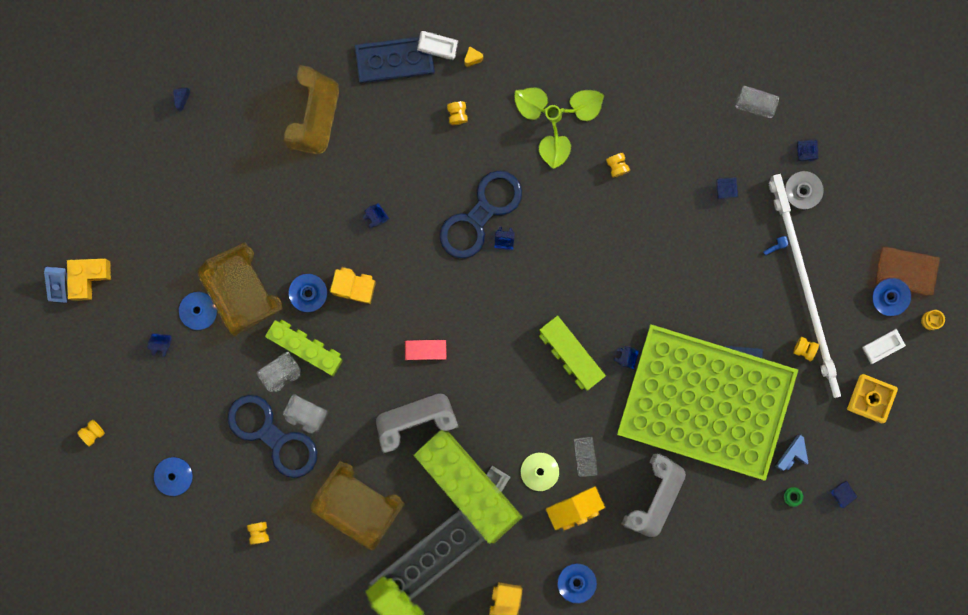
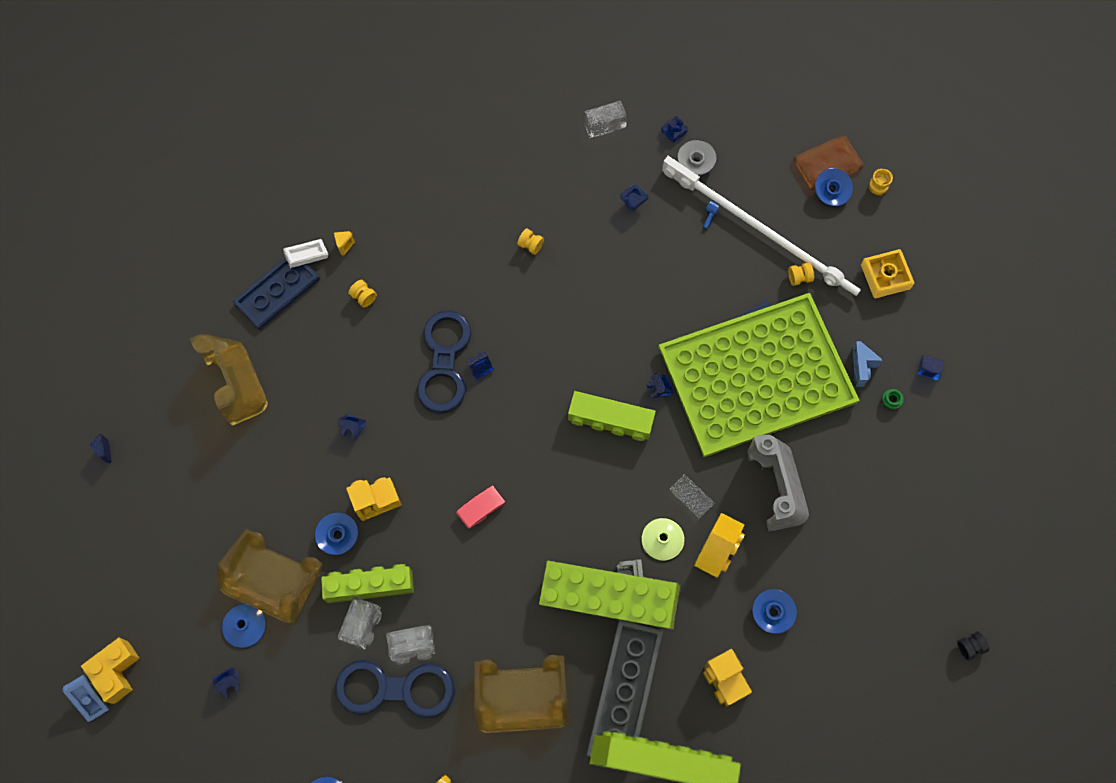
camera: 30 degrees left, 15 degrees down
(393, 421) = (497, 593): light grey windscreen -> none
(533, 101) = (422, 241): lime plant -> none
(883, 346) = (860, 230): white tile -> none

